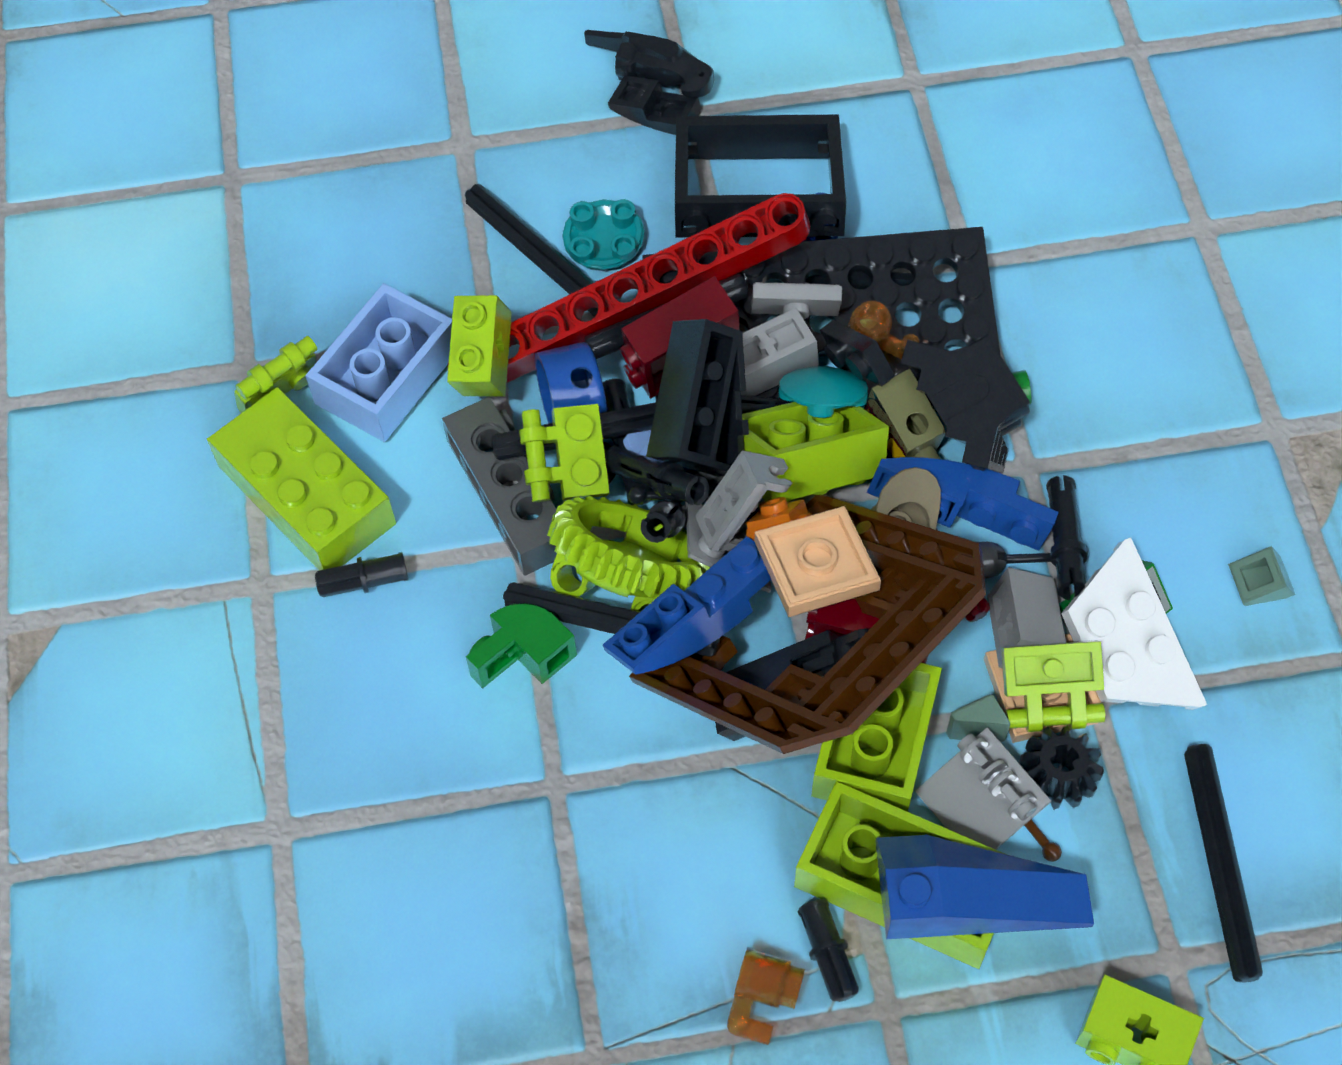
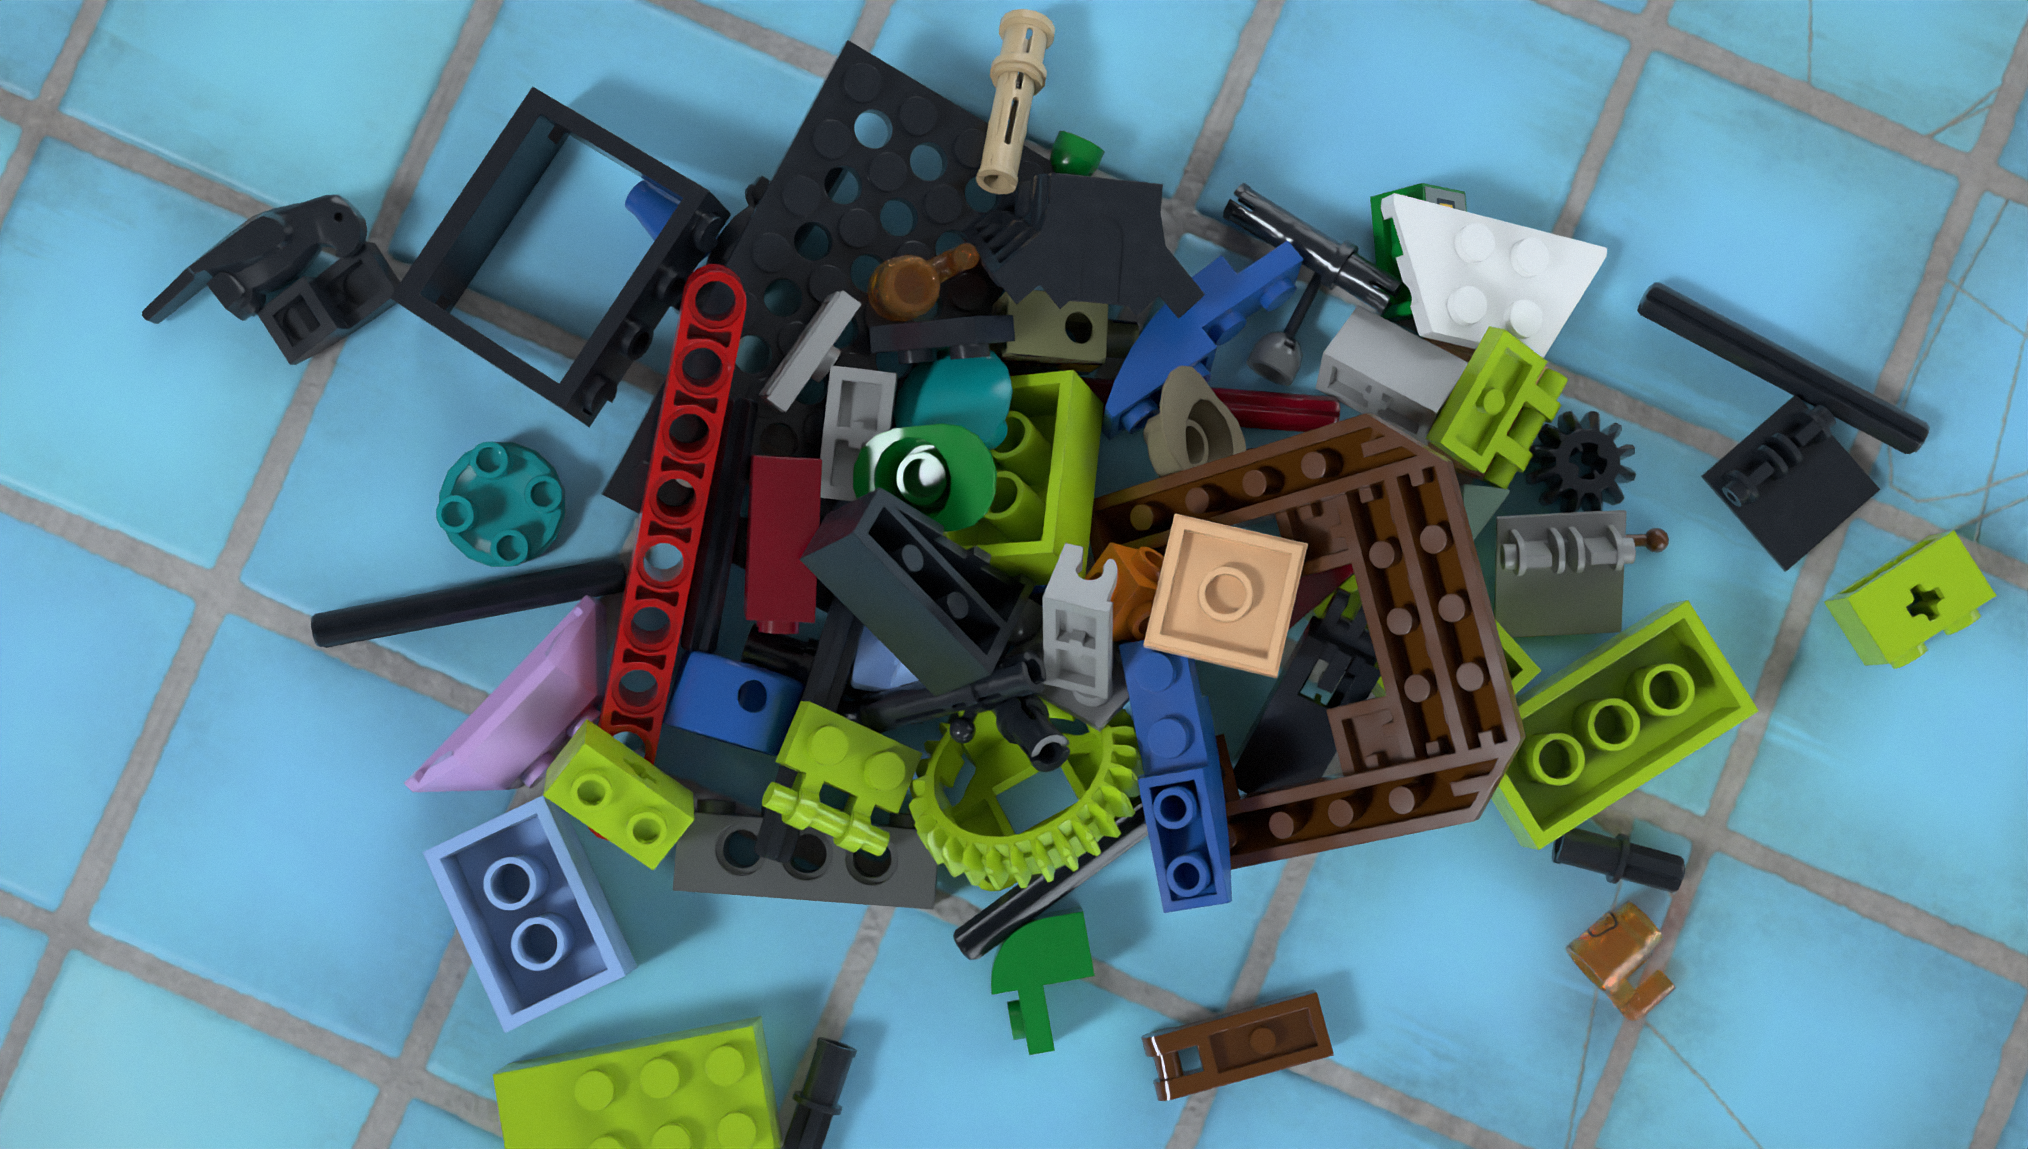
camera: 65 degrees left, 25 degrees up
(284, 371) = (470, 1080): lime plate -> none
(517, 286) = (529, 713): none -> lavender wedge
(551, 788) = (1239, 1045): none -> reddish brown plate
(772, 377) = (933, 469): none -> green piece
(964, 890) = (1691, 689): blue wedge -> none
(1034, 328) = (1021, 55): none -> tan pin
(1154, 912) = (1791, 481): none -> black hinge
(1261, 577) = (1494, 64): sand green slope -> none

